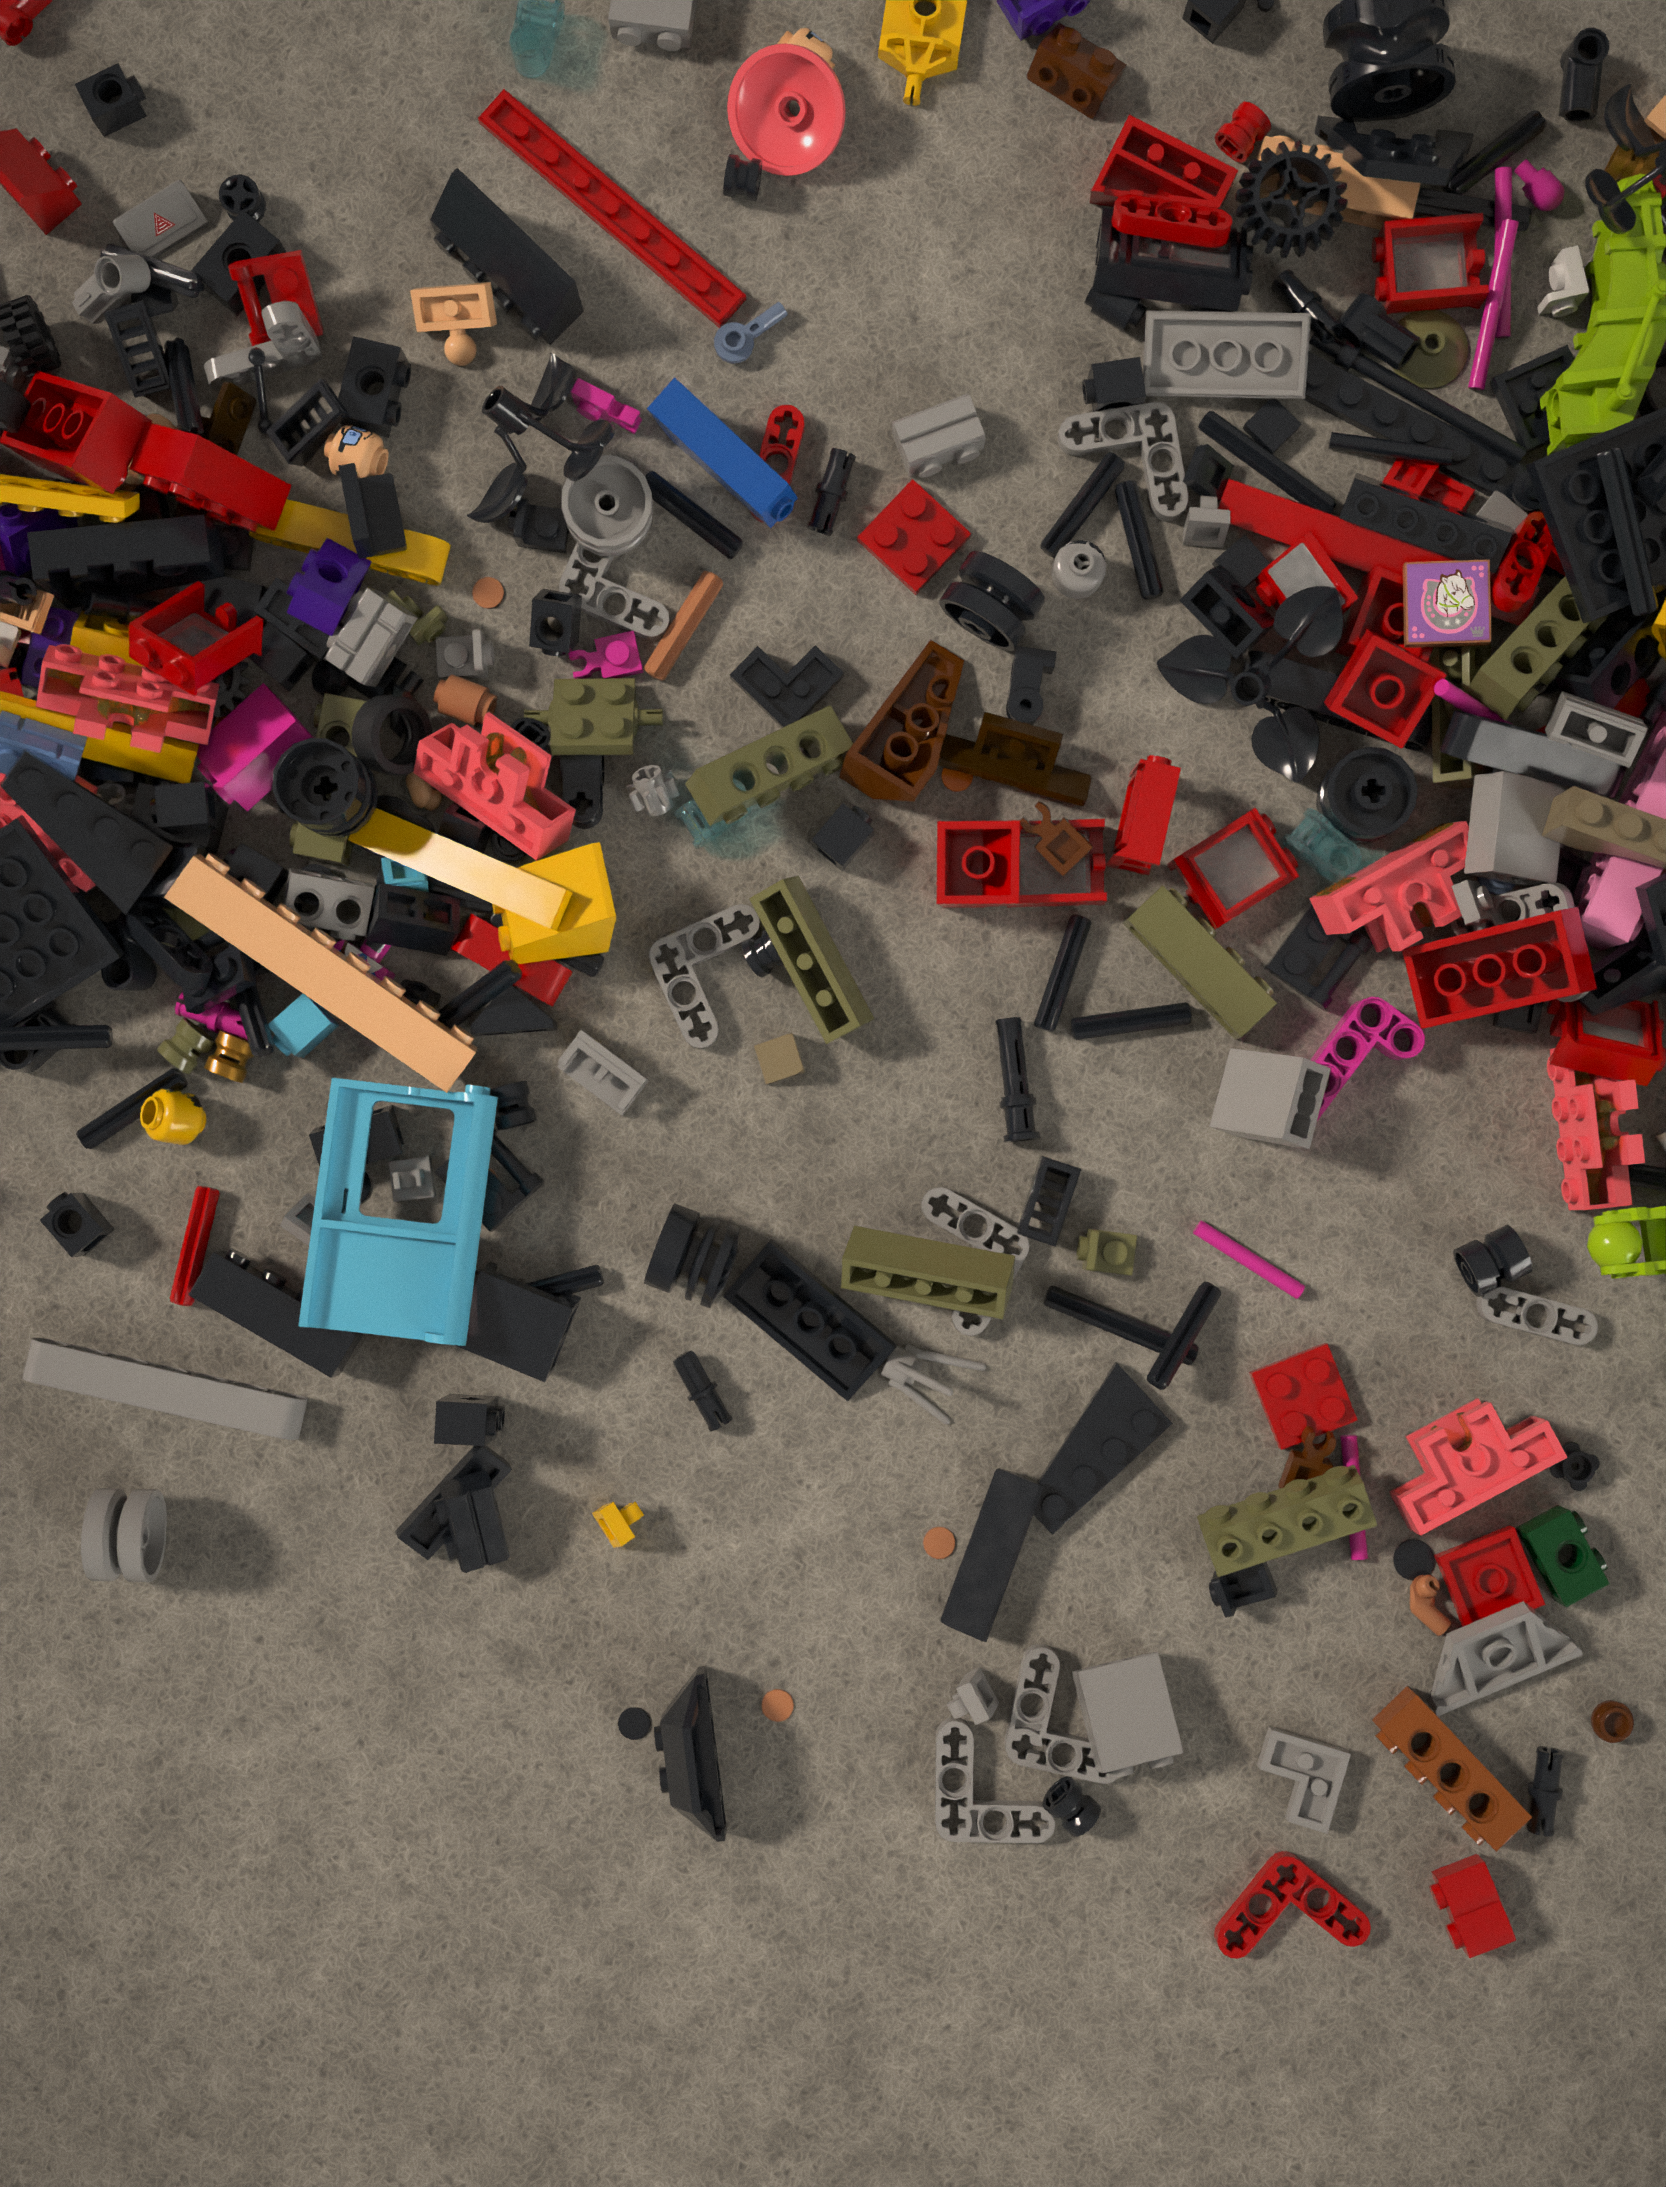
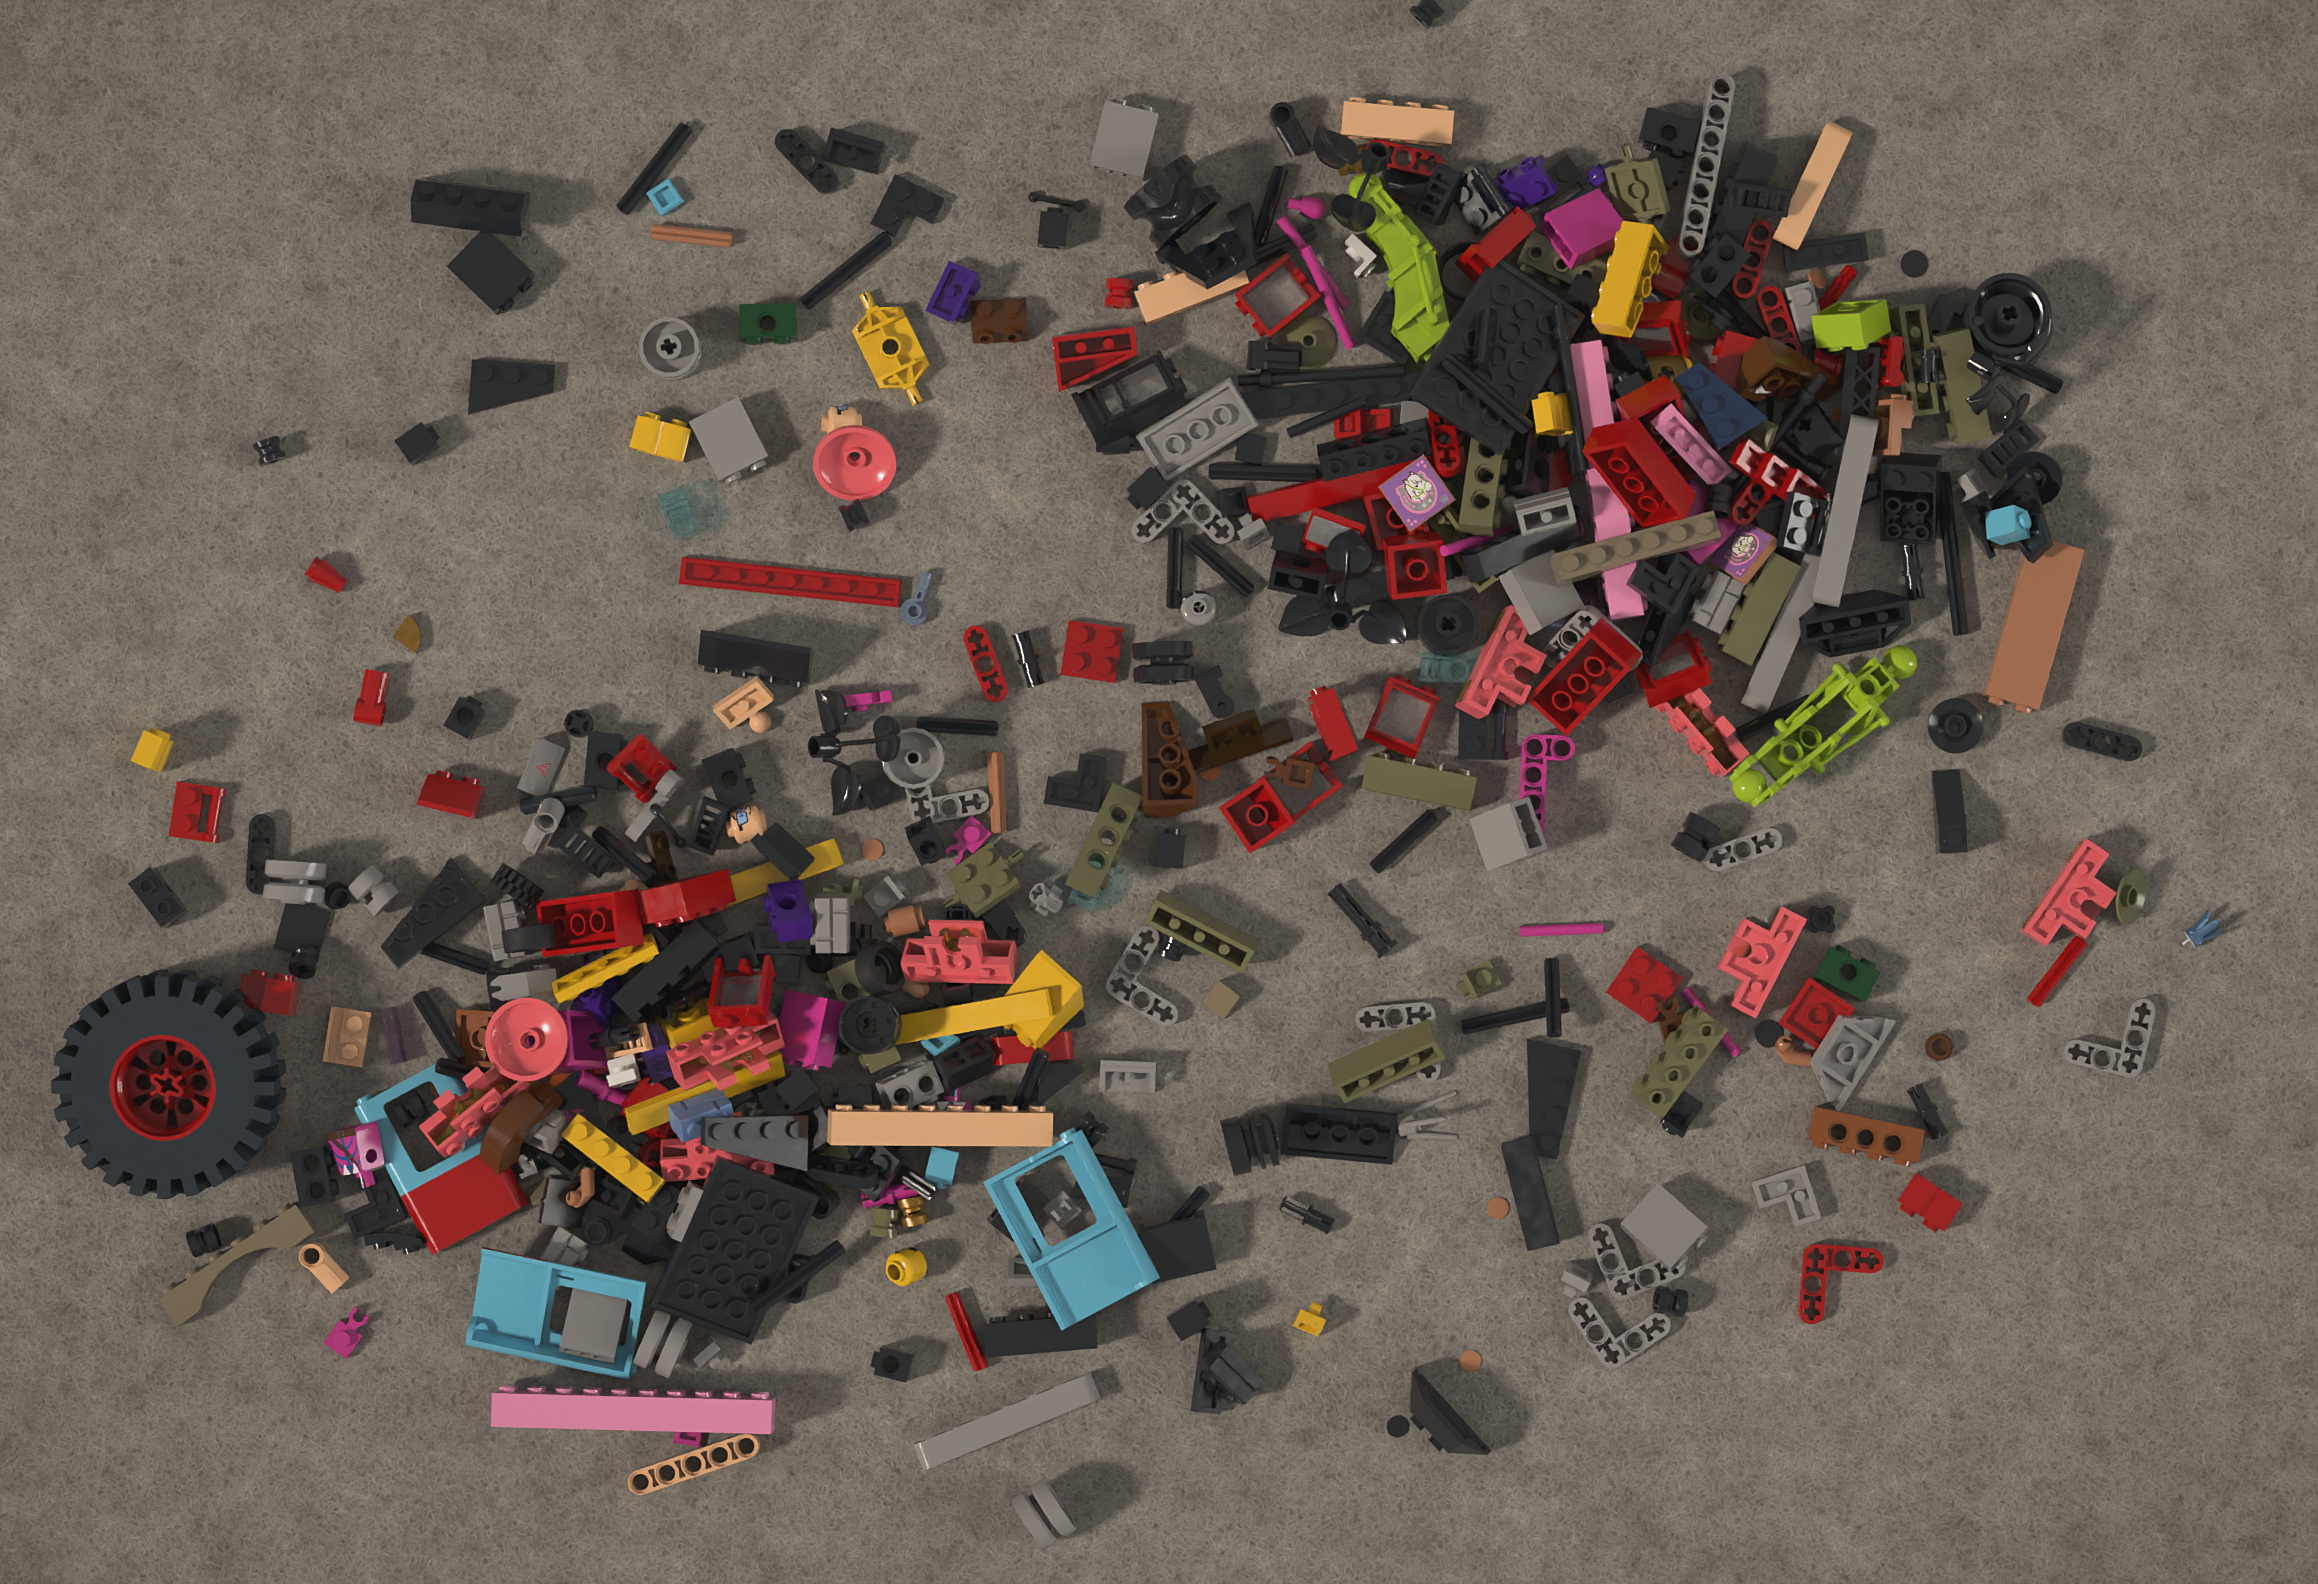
camera: 30 degrees left, 0 degrees up
(127, 1110) = (876, 1280): black axle -> none
(722, 453) = (957, 684): blue slope -> none
(939, 436) = (1067, 585): light grey brick -> none
(1062, 973) = (1346, 841): black axle -> none
(1072, 1174) = (1427, 950): black slope -> none
(1192, 223) = (1094, 382): red beam -> none
(1304, 301) = (1223, 369): black pin -> none
(1322, 189) = (1191, 305): black gear -> none
(1473, 902) = (1546, 647): light grey plate -> none

